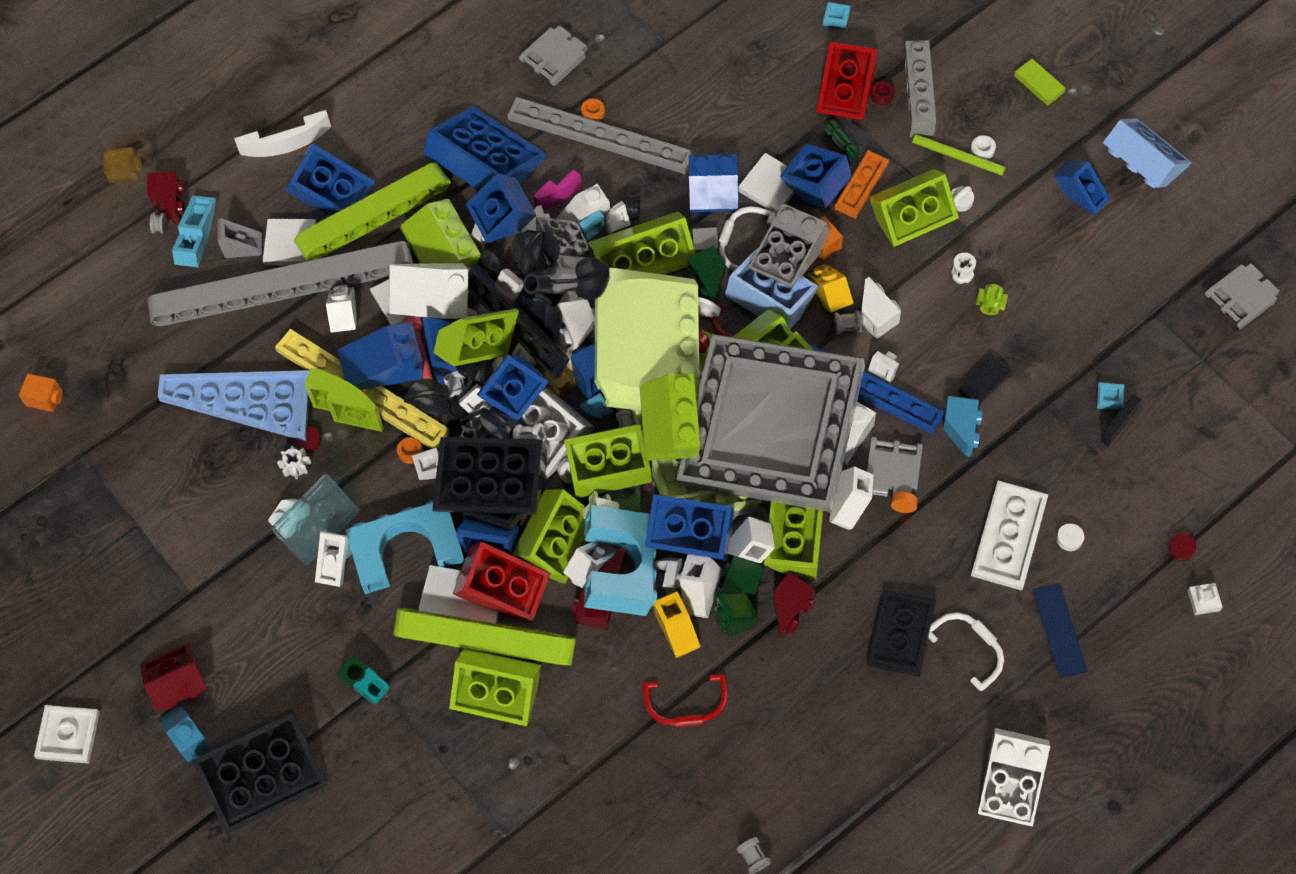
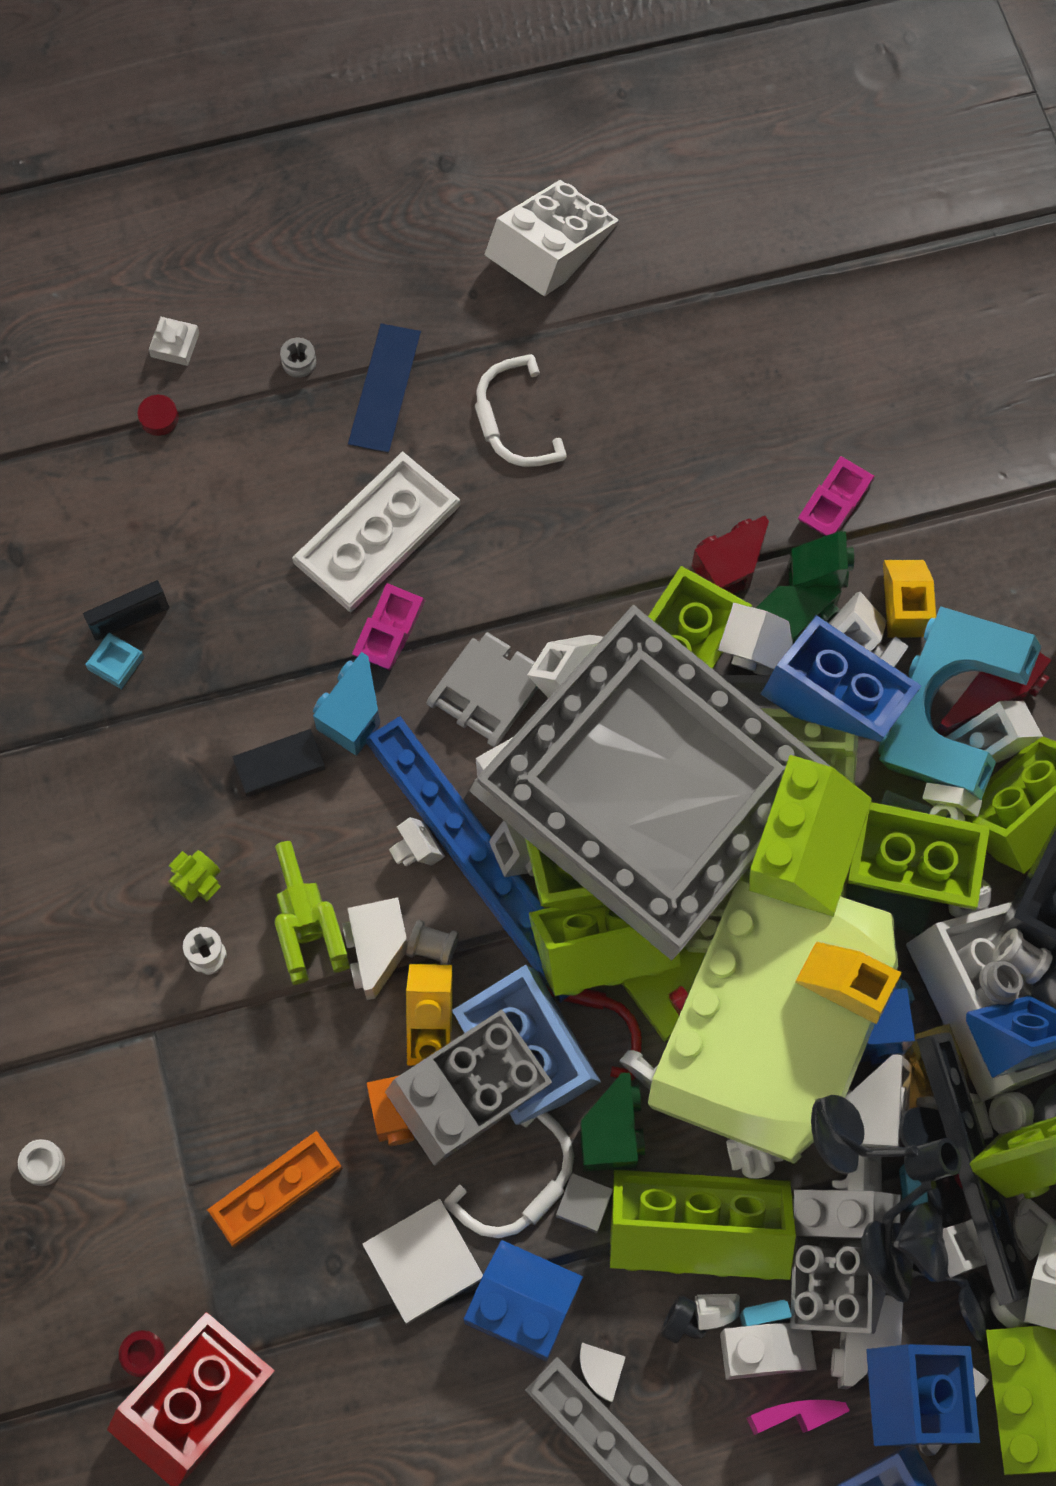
camera: 160 degrees left, 5 degrees up
(529, 411) = (1001, 982): none -> light grey plate
(616, 345) = (849, 979): none -> yellow slope
(661, 174) = (601, 1370): none -> white tile
(688, 720) = (940, 477): red piece -> none
(746, 676) = (836, 497): none -> dark pink slope
(753, 855) = (929, 278): light grey bush -> none
(817, 175) = (346, 1228): blue slope -> none
(842, 139) = (262, 1289): dark green axle -> none
(901, 633) = (597, 464): black tile -> none
(904, 502) = (500, 629): orange tile -> none
(914, 207) = (217, 1098): lime slope -> none
(919, 88) = (79, 1320): light grey brick -> none
(920, 301) = (305, 919): none -> lime plant
(959, 155) = (88, 1168): lime bar -> none
(963, 198) = (132, 1082): white tile -> none
(969, 480) = (389, 626): none -> dark pink slope
(1070, 537) = (297, 491): white tile -> none
(1115, 624) = (298, 345): none -> light grey bush

